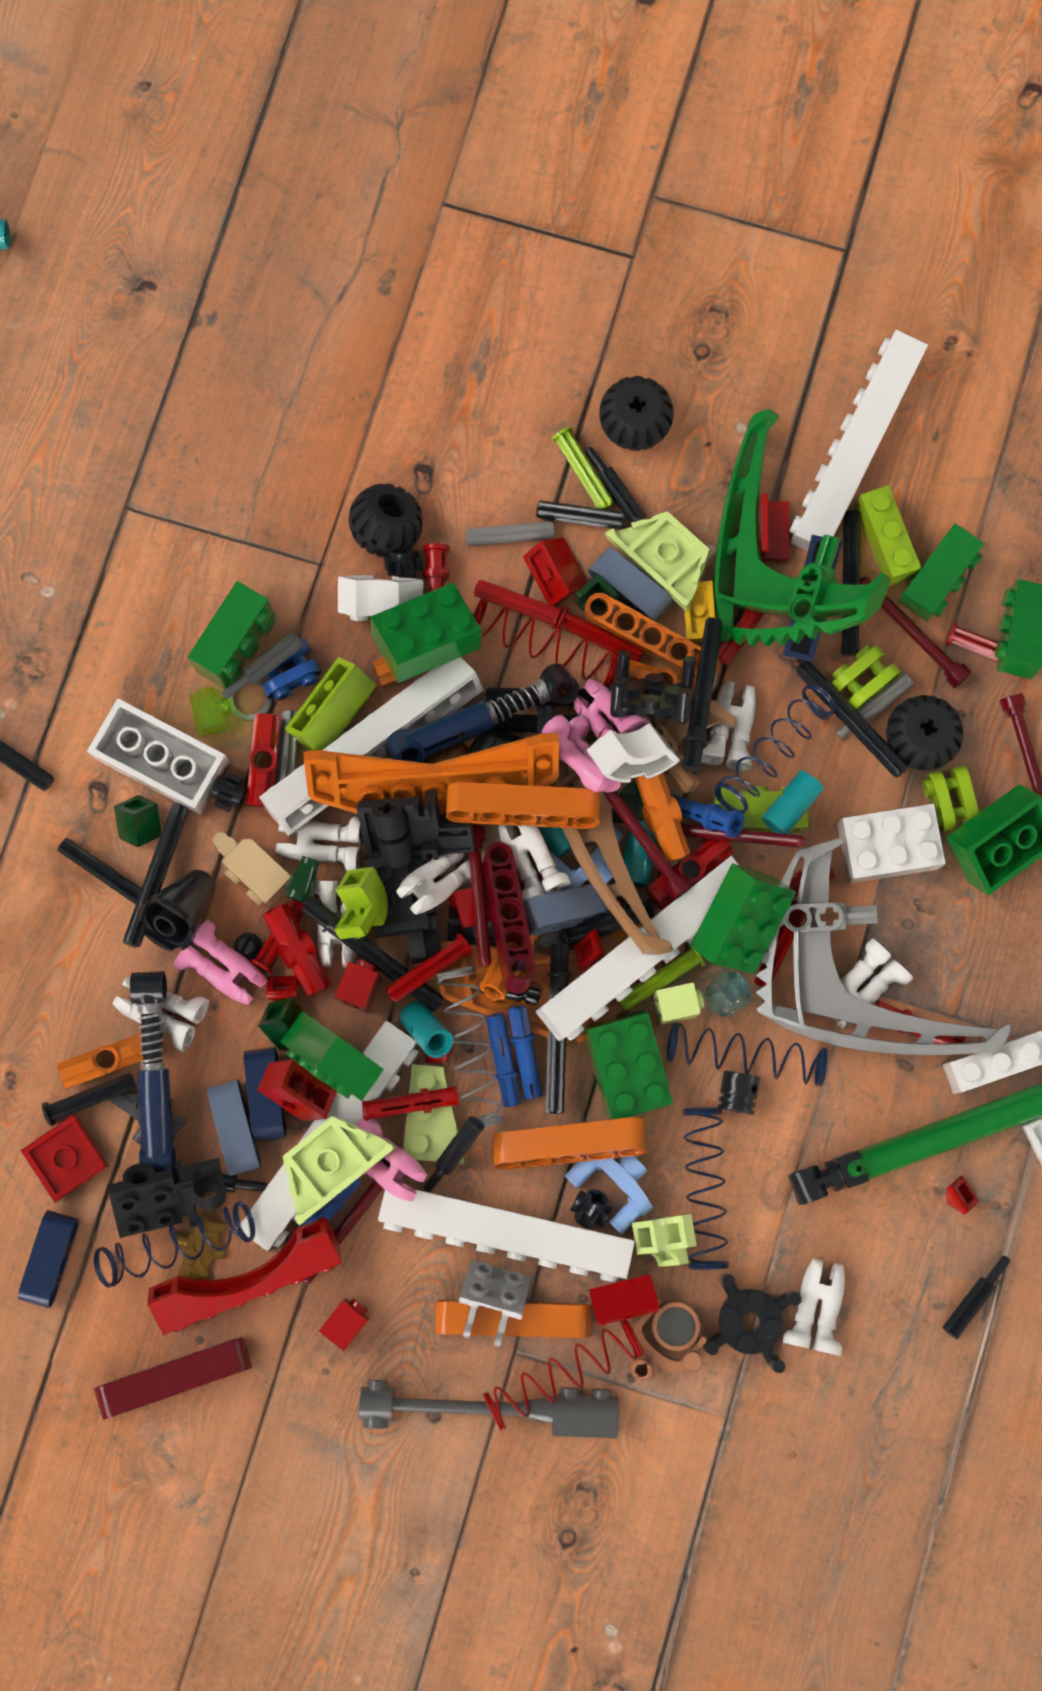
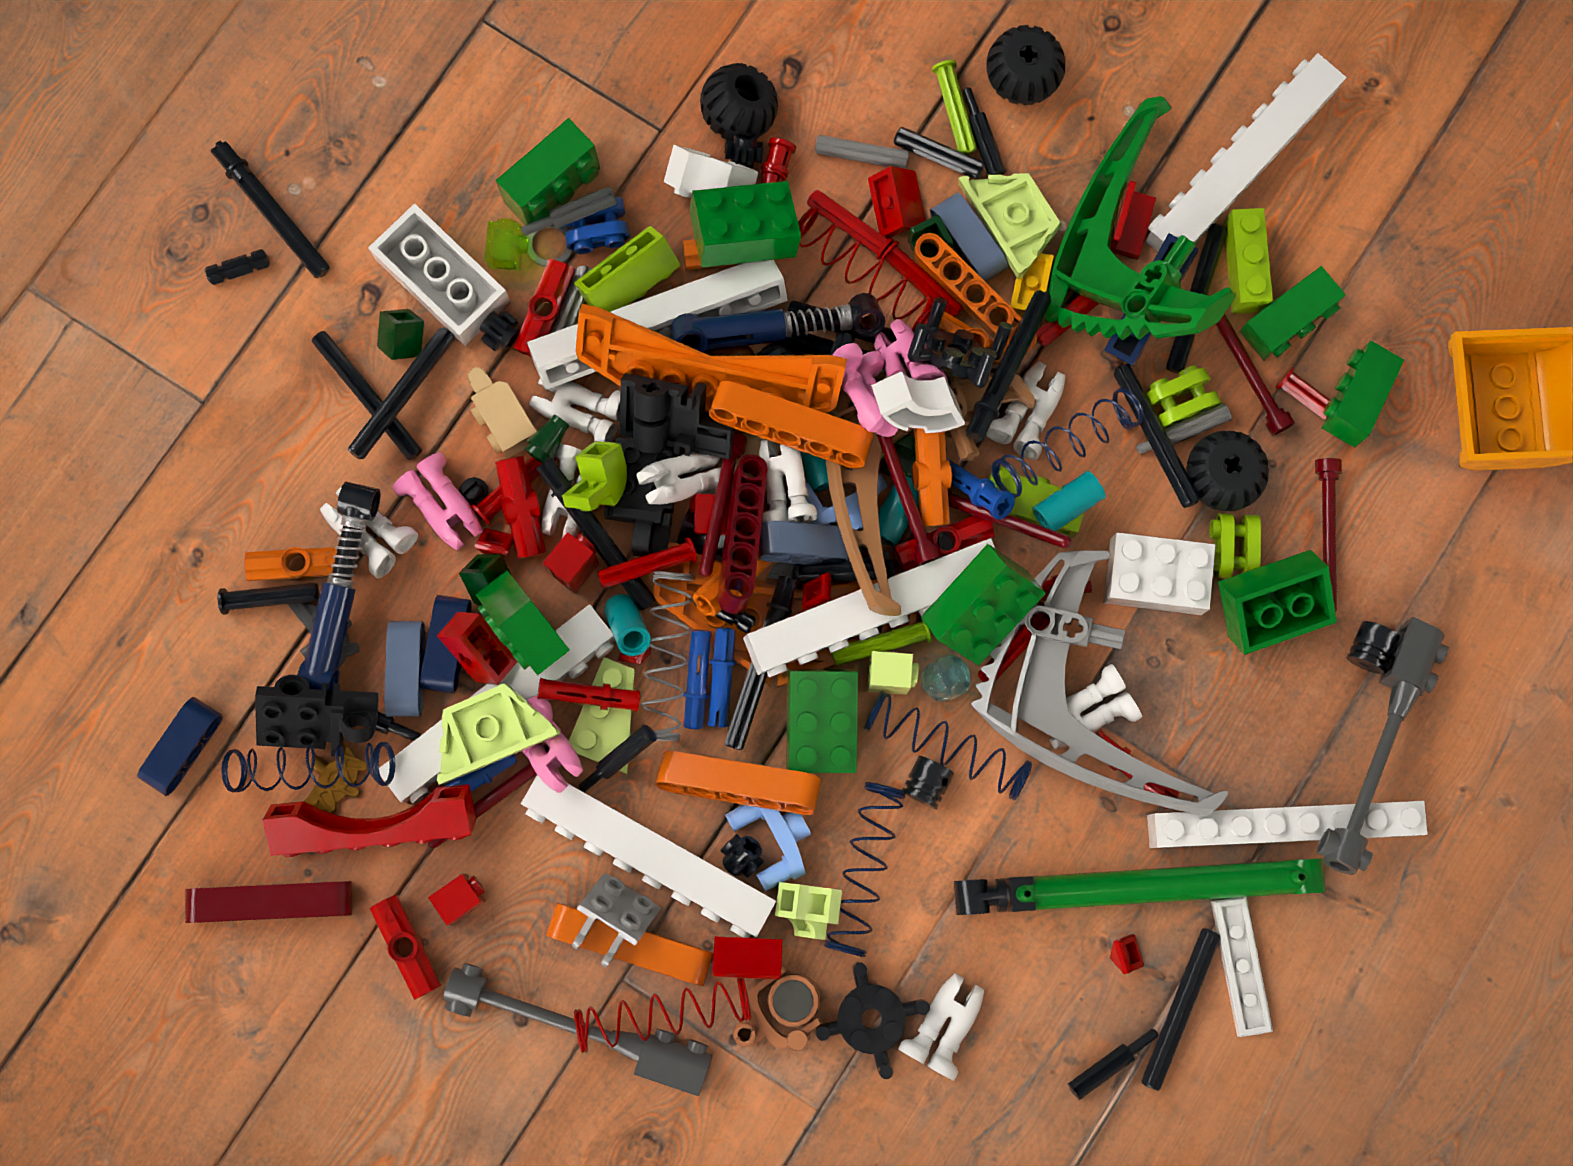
camera: 15 degrees right, 0 degrees up
(64, 1158) = (226, 650): red plate -> none
(177, 910) = (411, 432): black cone -> none
(295, 1365) = (394, 926): none -> red piece
(1023, 1231) = (1180, 1009): none -> black axle

